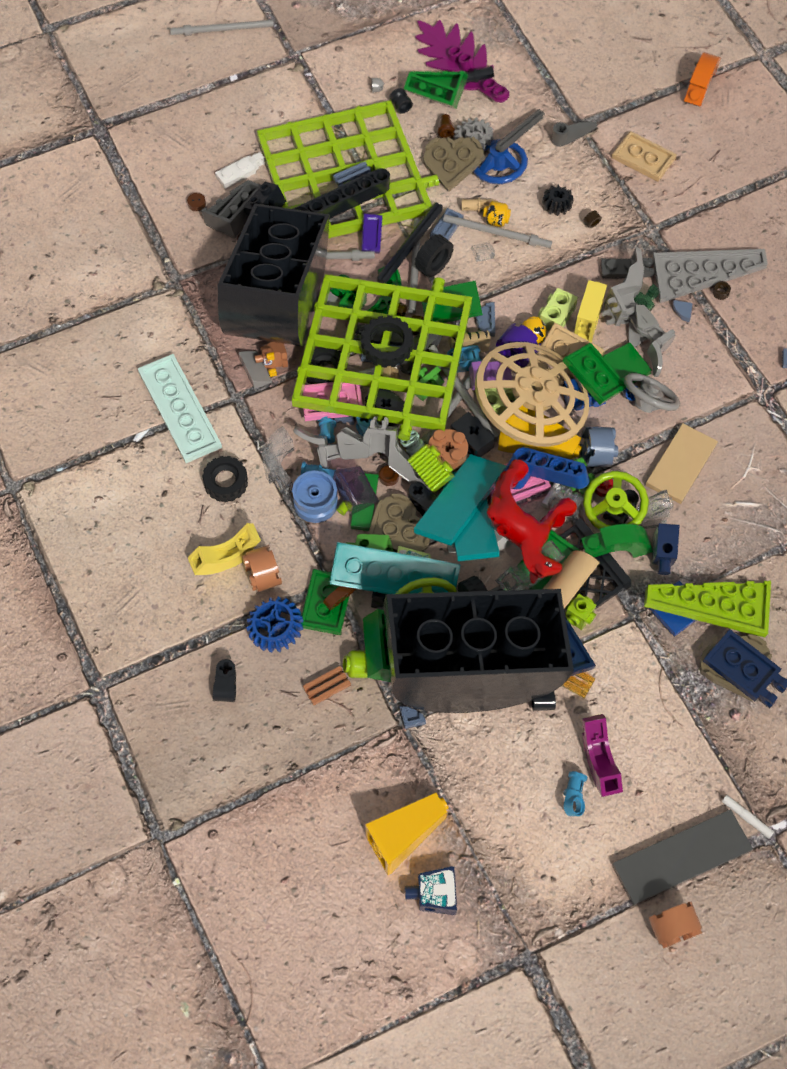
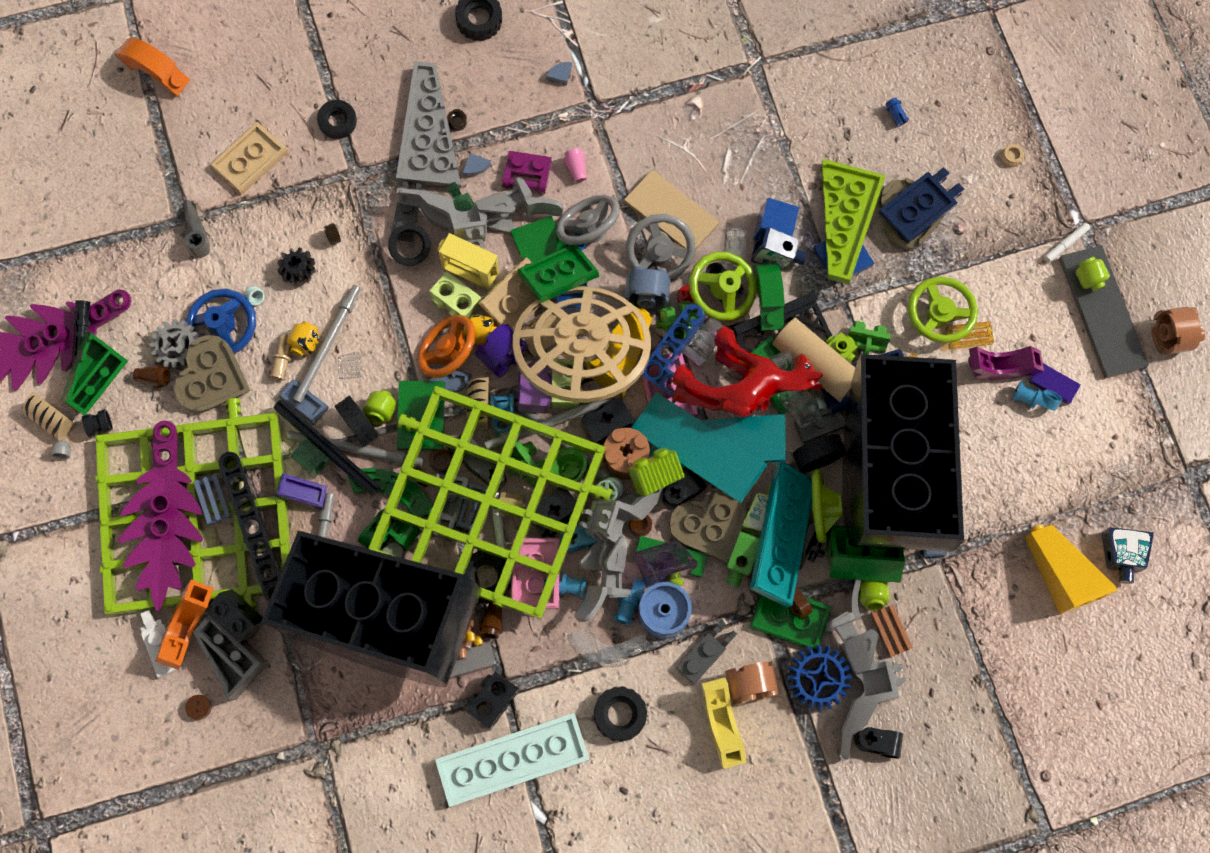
camera: 85 degrees left, 10 degrees up
(222, 390) = (497, 703): none -> black brick
(240, 173) = (182, 624): none -> orange arch
(285, 538) = (704, 654): none -> dark grey hinge
(286, 377) = (492, 622): none -> reddish brown cone
(297, 656) = (877, 676): none -> light grey piece
(331, 149) = (161, 520): none -> magenta plant
(387, 358) = (473, 471): black tyre -> none
(398, 75) = (47, 417): none -> tan brick
(398, 234) = (310, 458): none -> clear green panel
(426, 406) = (570, 464): none -> bright green helmet
(451, 272) = (379, 407): none -> lime head
(510, 308) = (449, 348): none -> orange piece
(519, 130) = (188, 287): dark grey axle -> none
(524, 177) = (259, 297): none -> light aqua hinge
(591, 257) = (426, 244): none -> black tyre
(594, 814) = (1056, 382): none -> dark purple tile
(596, 637) = (869, 340): none -> bright green hips
(631, 747) = (972, 343): none -> clear yellow tile
(641, 695) = (942, 310): none -> lime piece
(642, 450) = (660, 245): none -> light grey piece
(693, 542) = (777, 216): none -> blue head
(694, 216) = (336, 106): none -> black tyre
(694, 348) = (527, 166): none -> magenta plate
(706, 381) = (576, 164): none -> bright pink cone
(715, 833) = (1092, 274): none -> lime head

